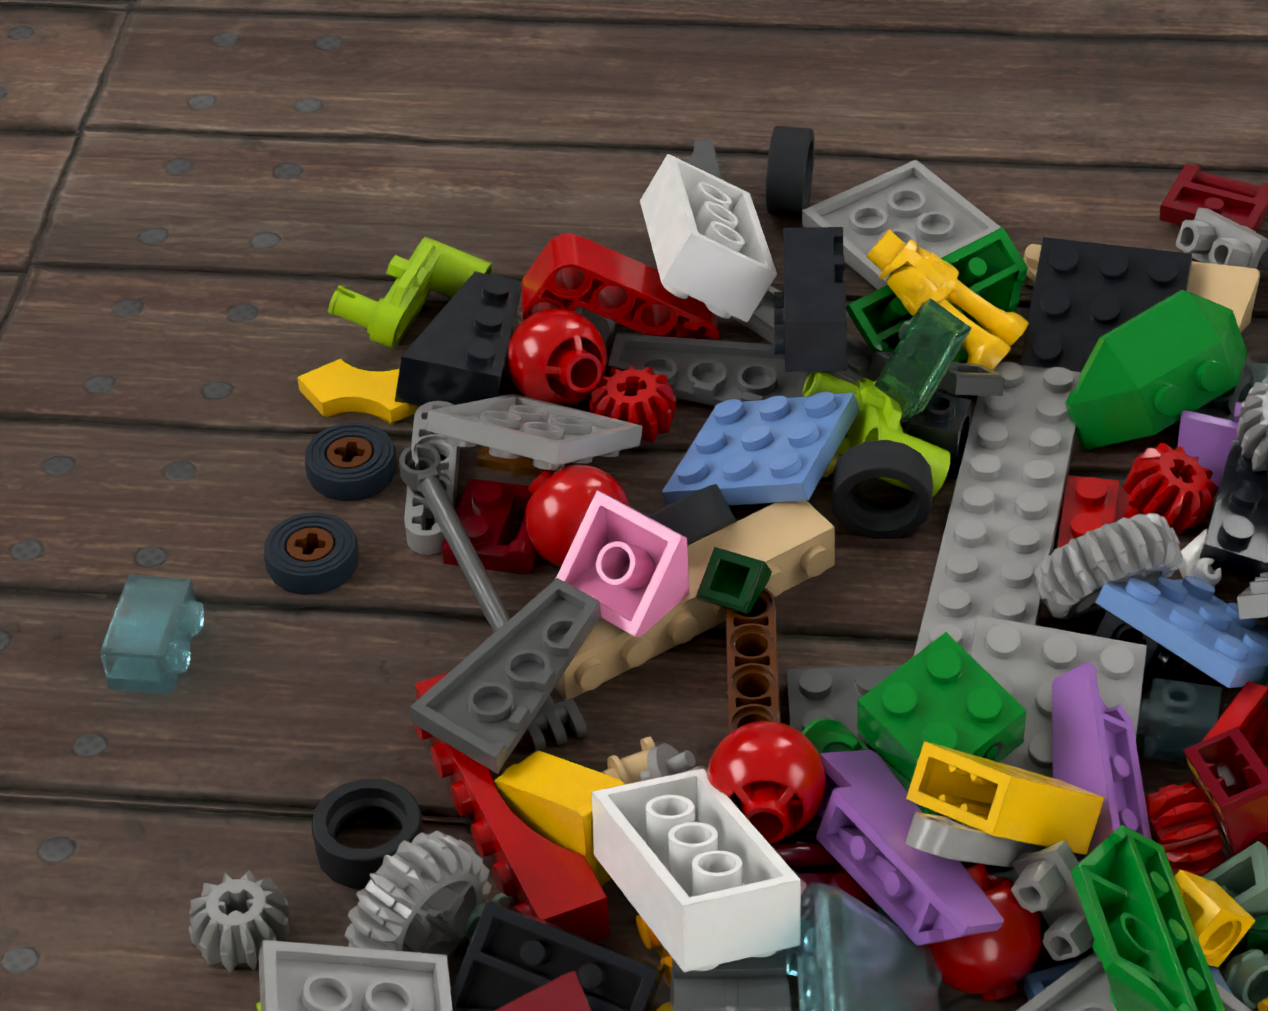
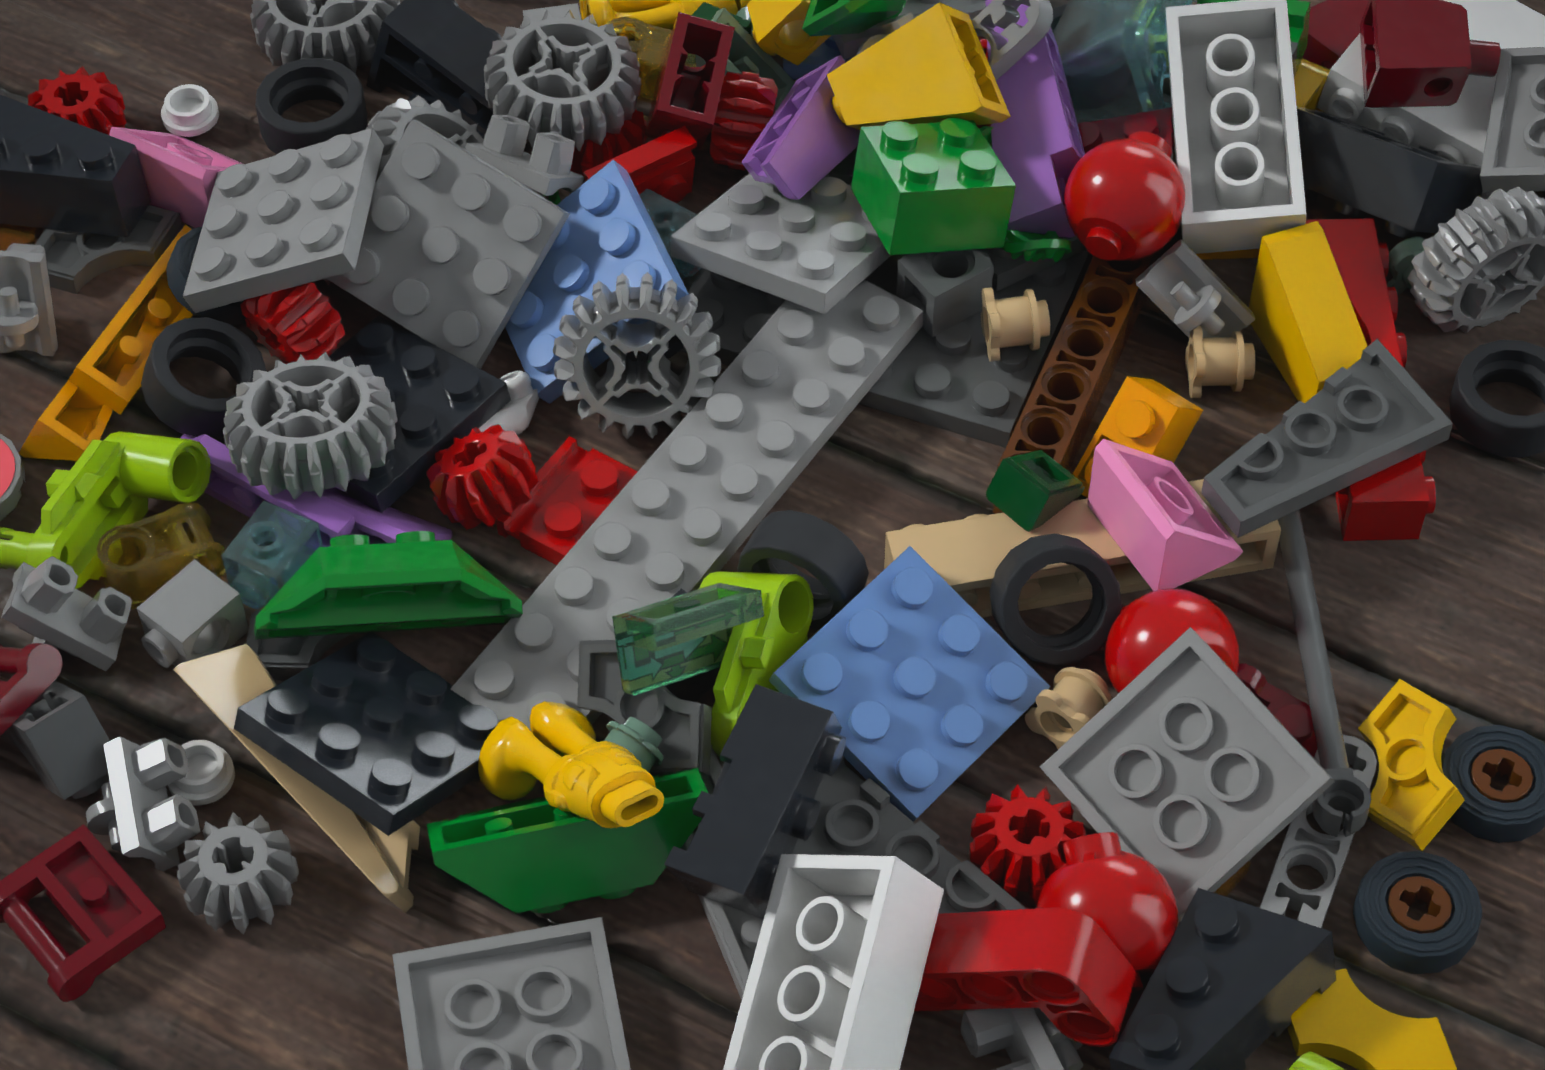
camera: 160 degrees left, 10 degrees up
(380, 533) = (1411, 789): none -> yellow tile
(643, 482) = (1069, 706): none -> tan brick
(675, 685) = (1144, 419): none -> light orange slope
(827, 700) = (1013, 321): none -> tan brick
(1136, 228) = (237, 873): none -> light grey gear

